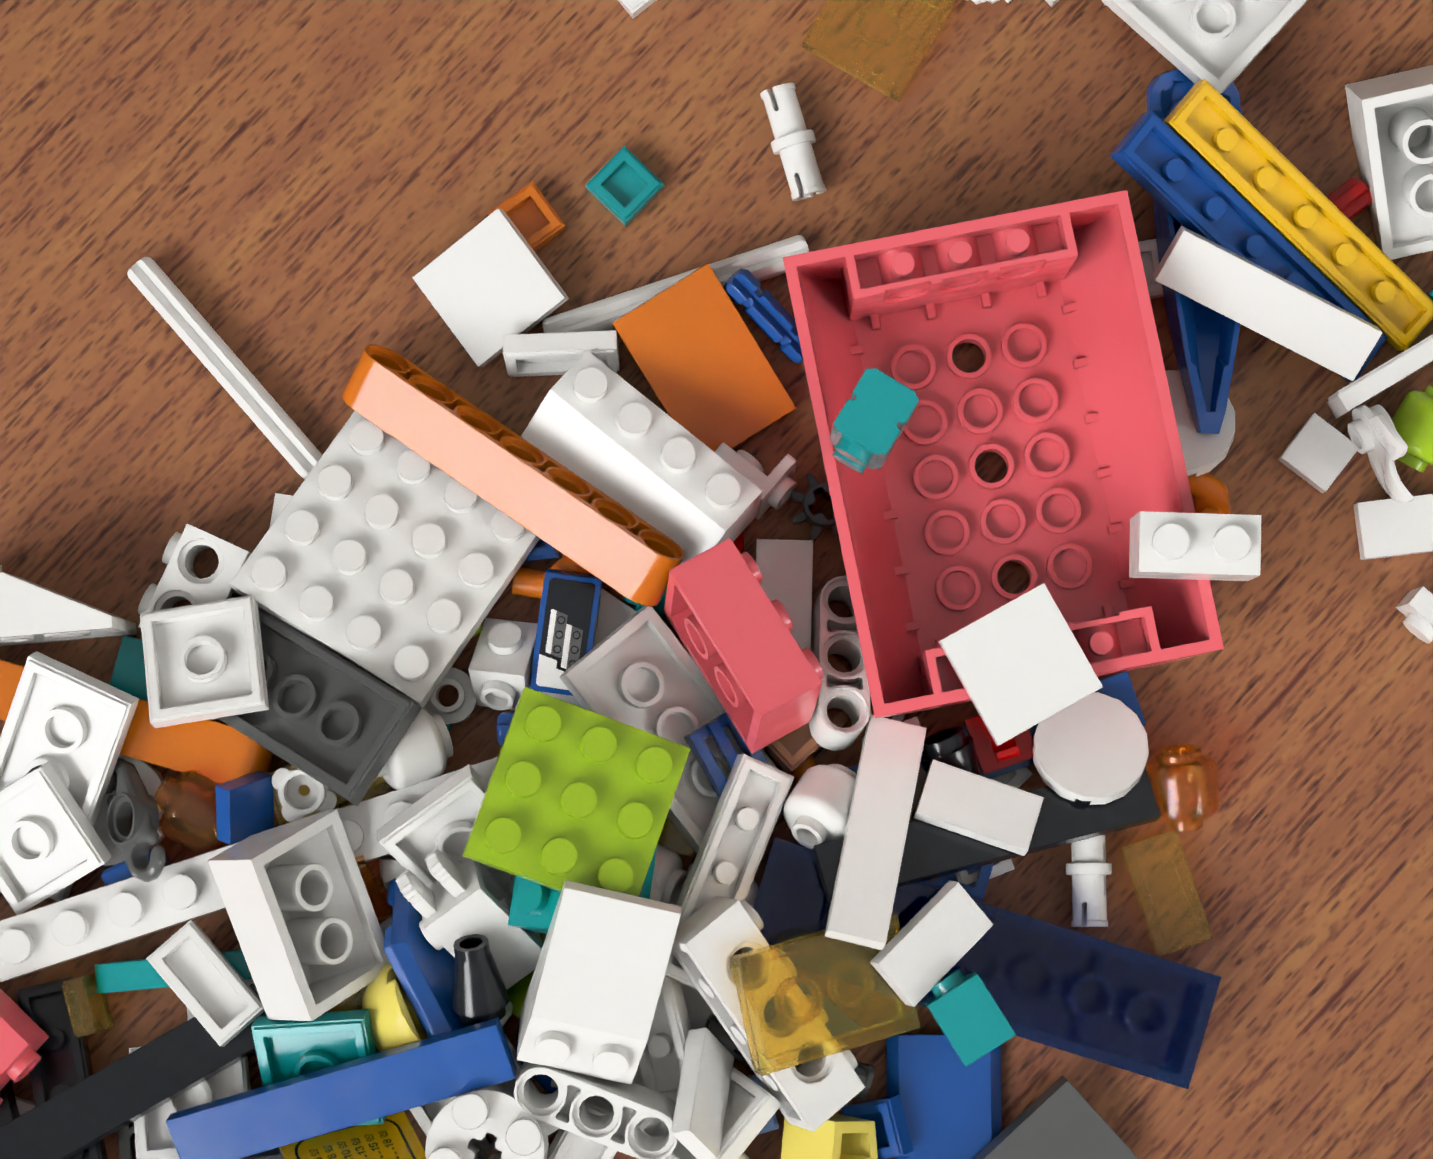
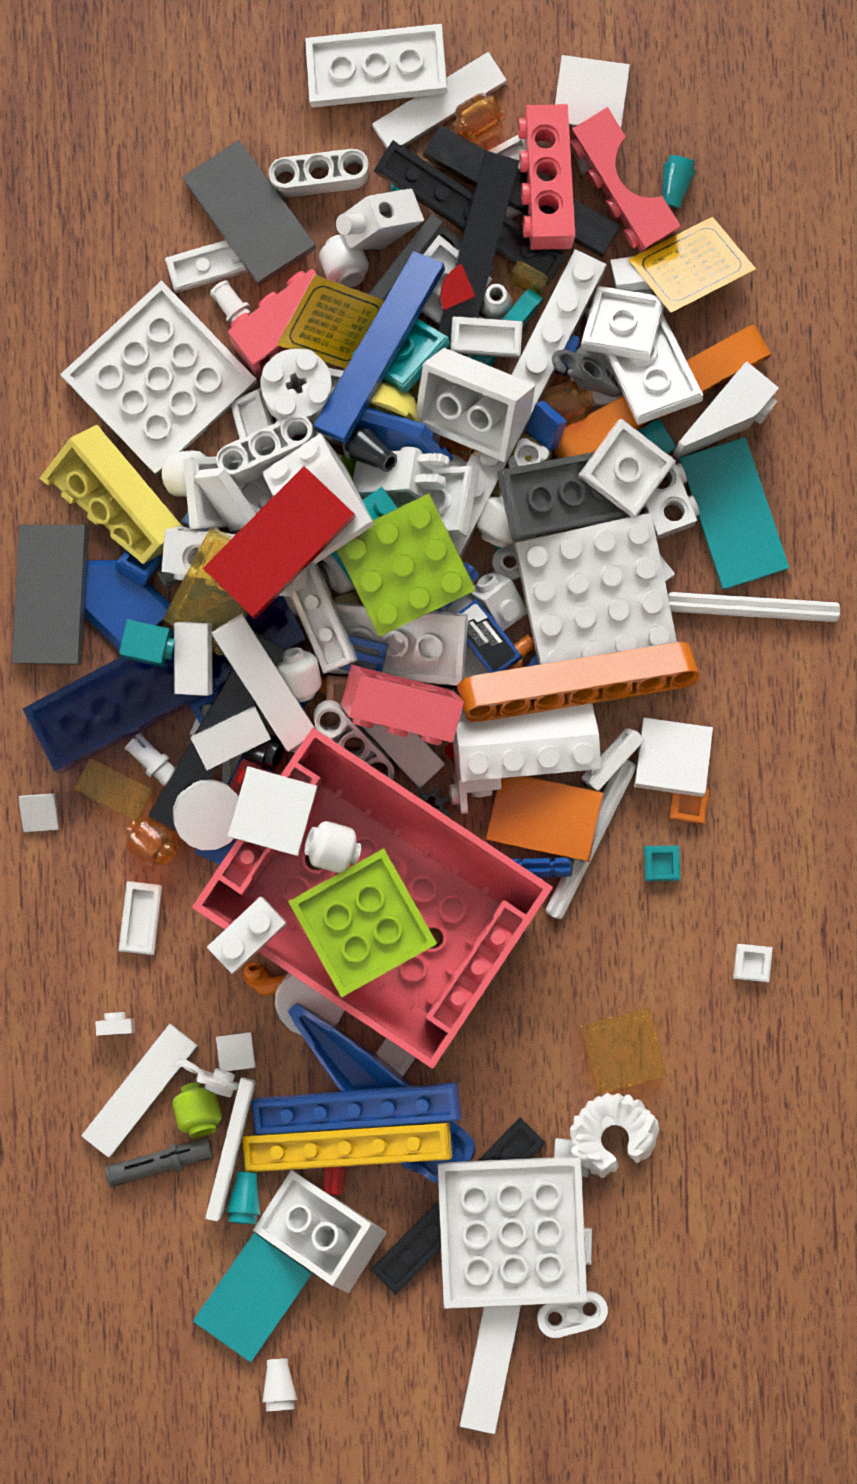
camera: 130 degrees right, 0 degrees up
(137, 494) = (734, 514): none -> teal tile
(163, 1006) = (496, 309): none -> white cone
(183, 1076) = (455, 288): none -> red tile
(698, 972) = (279, 542): none -> red tile
(793, 141) = (607, 957): white pin -> none
(872, 421) = (439, 845): teal brick -> none
(993, 550) = (332, 847): none -> white head
(1045, 430) = (362, 922): none -> lime plate
(1267, 303) = (323, 1089): white tile -> none
(1279, 712) = (140, 918): none -> white tile
(1279, 952) = (39, 812): none -> white slope
(1306, 42) = (424, 1237): none -> black tile

